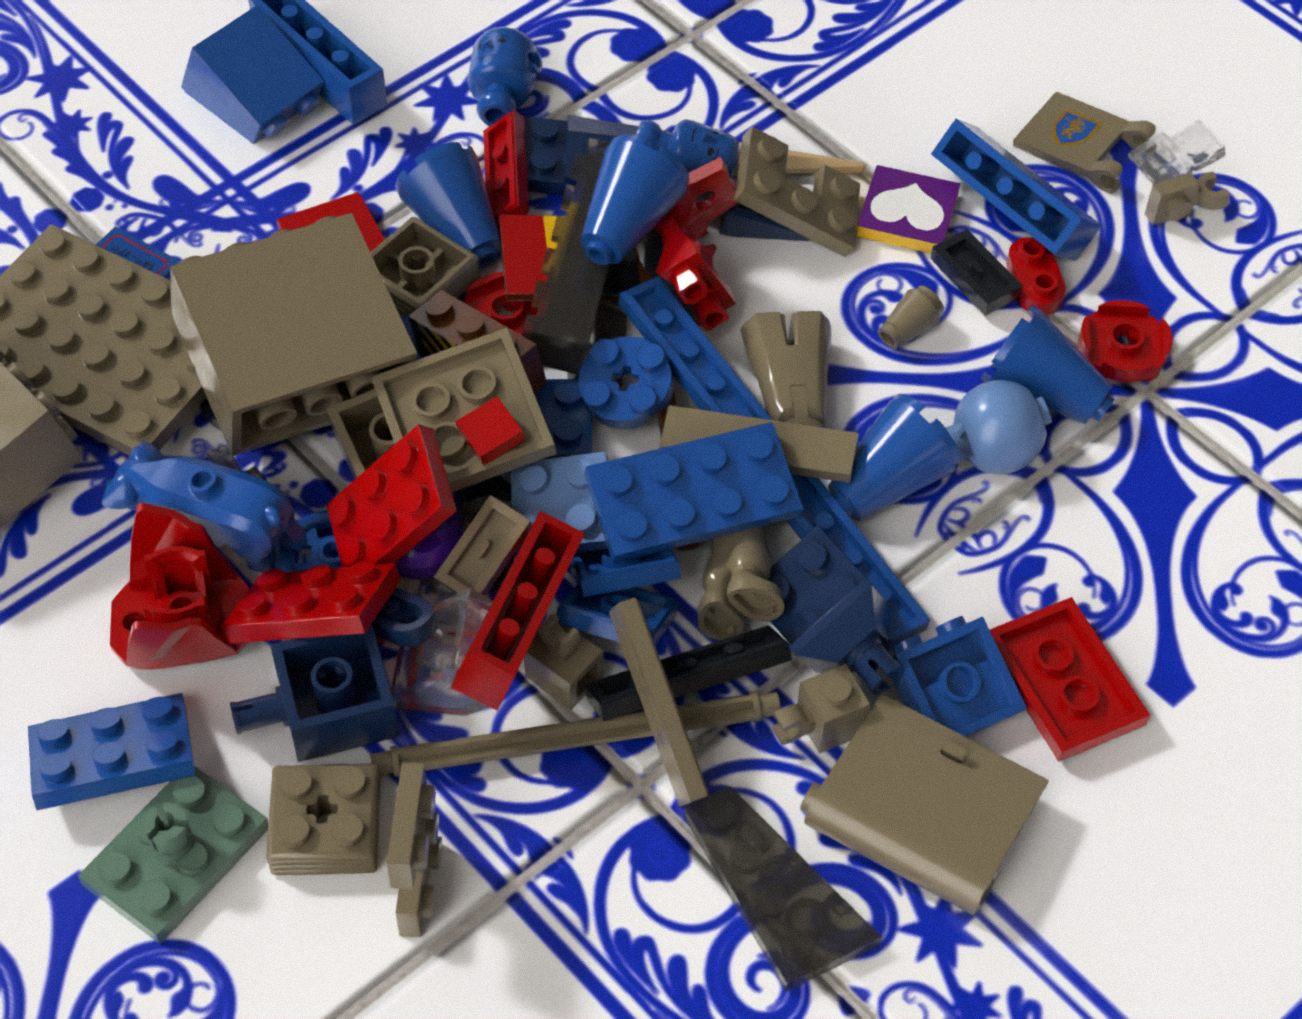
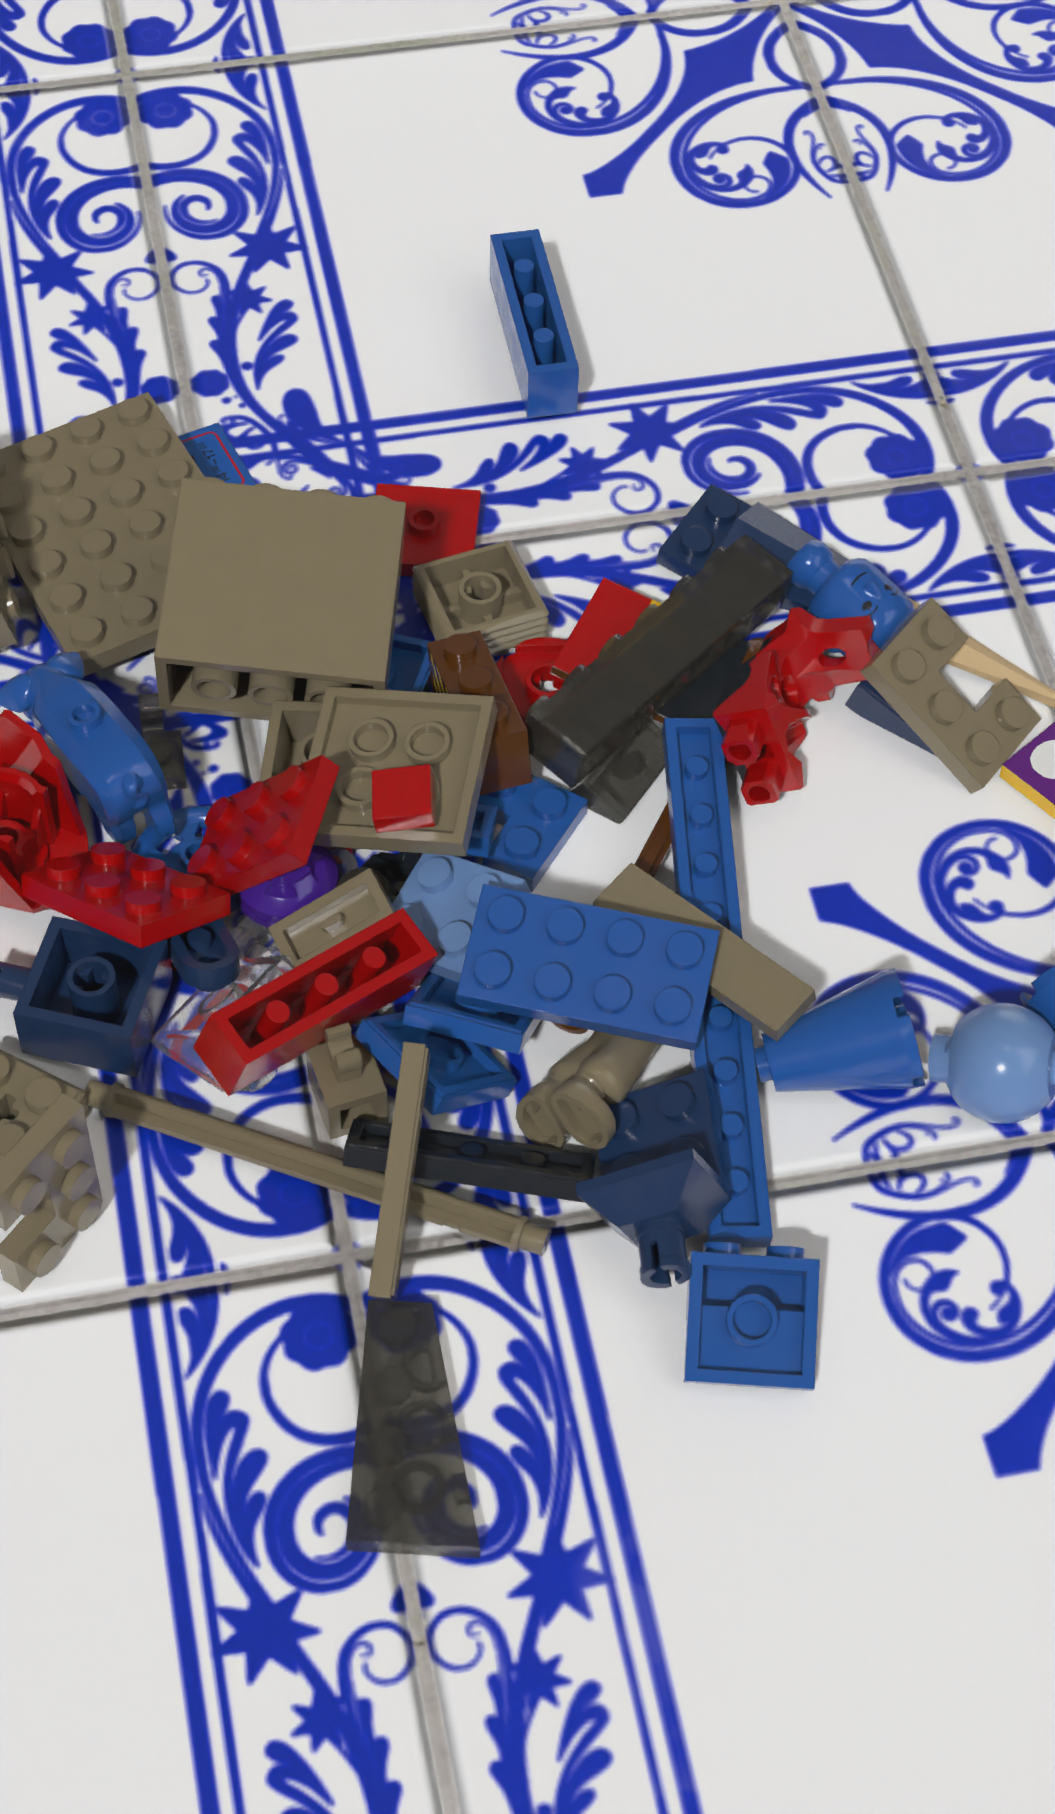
camera: 30 degrees right, 0 degrees up
(251, 77) = (448, 321): blue slope -> none
(453, 199) = (564, 540): blue cone -> none
(502, 72) = (715, 428): blue piece -> none
(506, 166) = (652, 531): red tile -> none
(630, 197) = (726, 618): blue cone -> none
(642, 400) = (606, 789): blue plate -> none
(791, 370) = (813, 889): dark tan piece -> none
(827, 710) = (588, 1276): dark tan brick -> none
(912, 316) = (992, 894): dark tan cone -> none
(925, 803) = (615, 1438): dark tan door -> none
(1068, 679) = (884, 1380): red plate -> none

